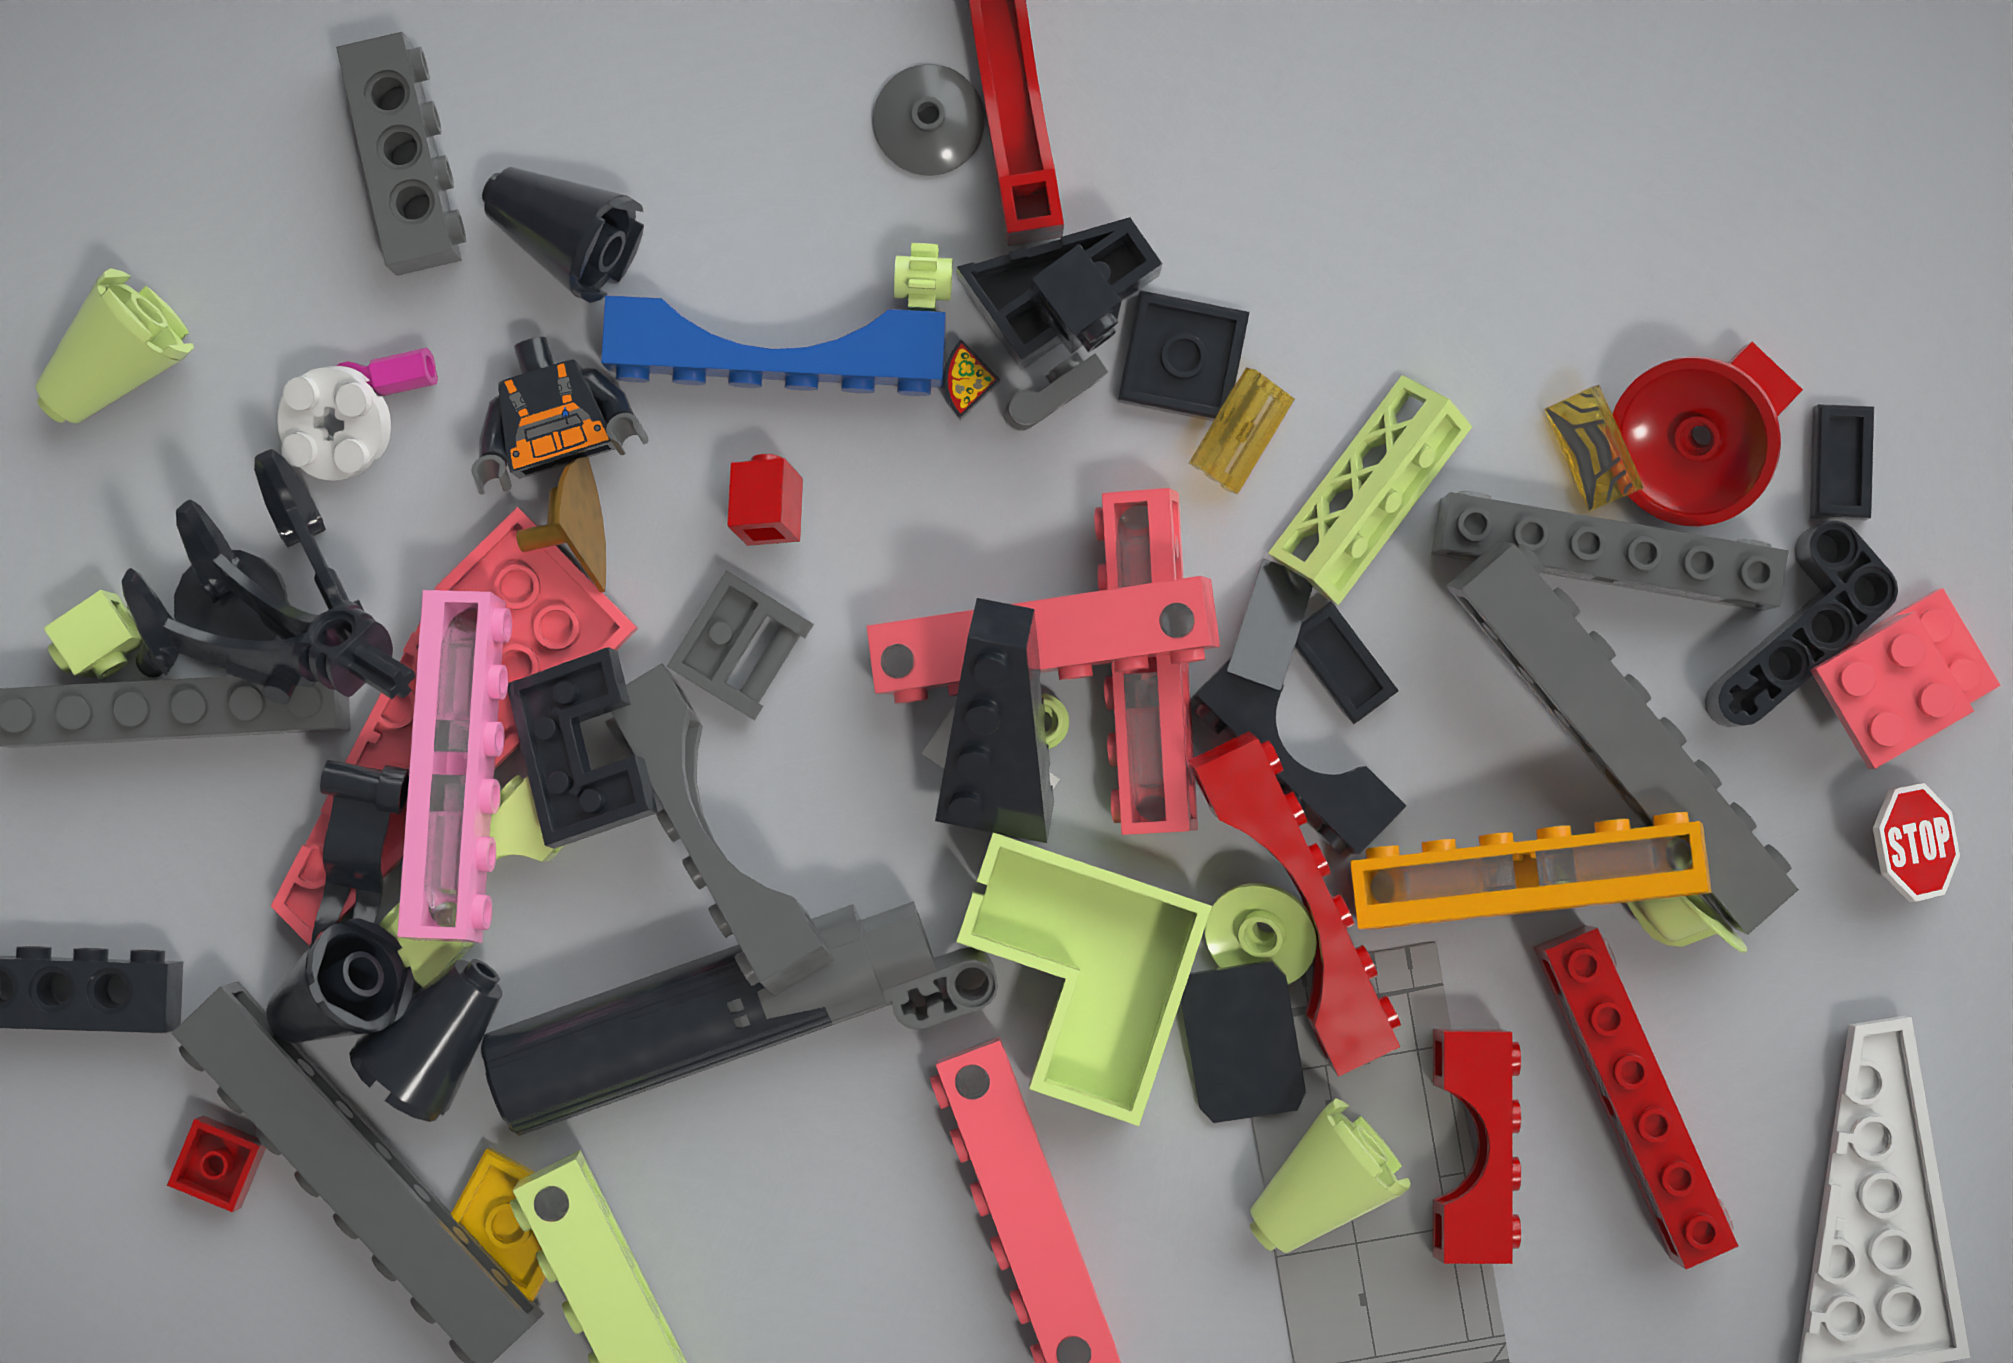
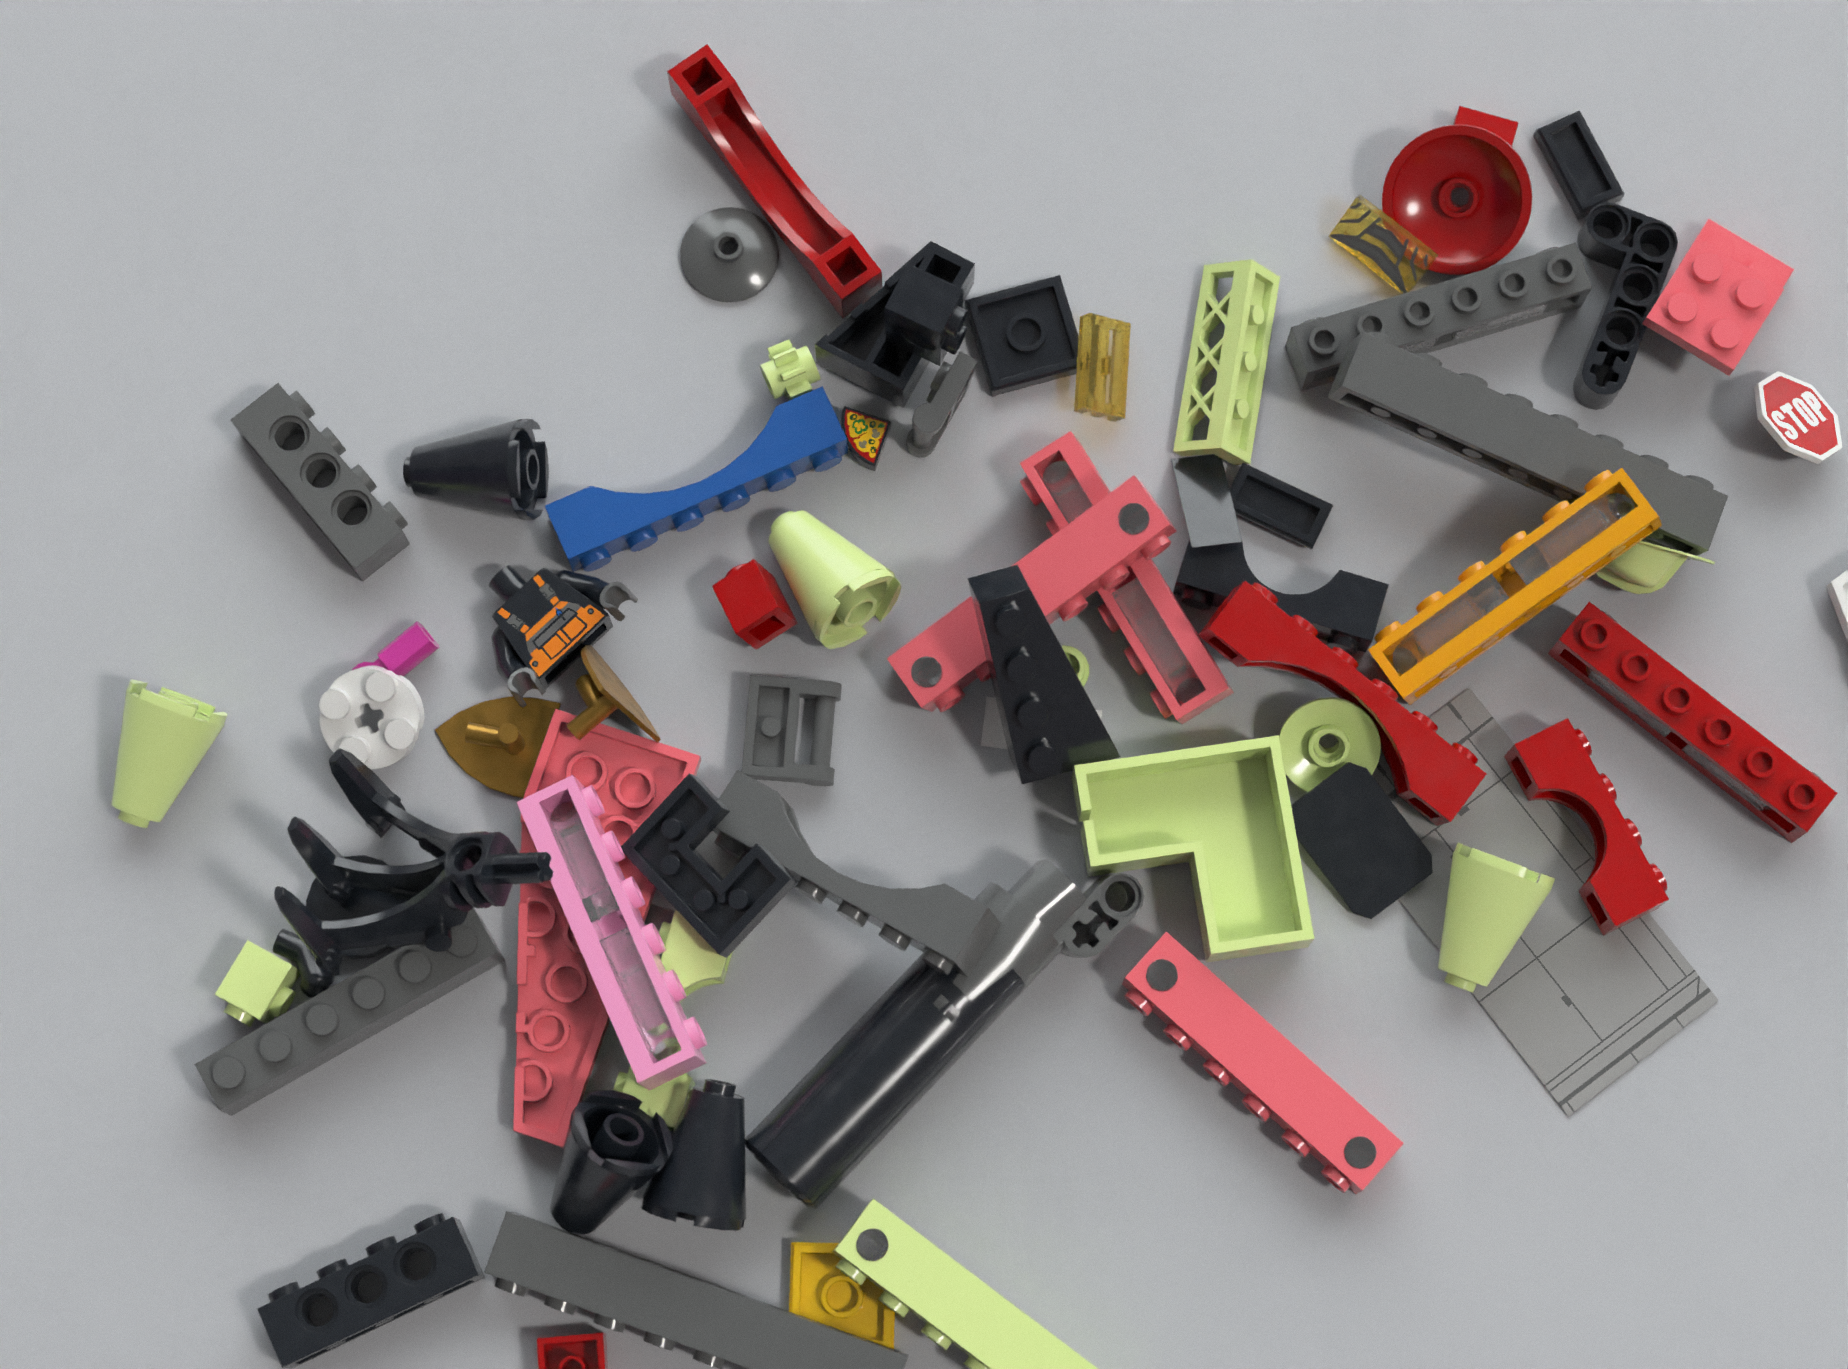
camera: 25 degrees left, 10 degrees down
(357, 836) = (559, 1029): black flag -> none
(446, 510) = (499, 741): none -> pearl gold shield
(854, 512) = (831, 578): none -> yellowish green cone

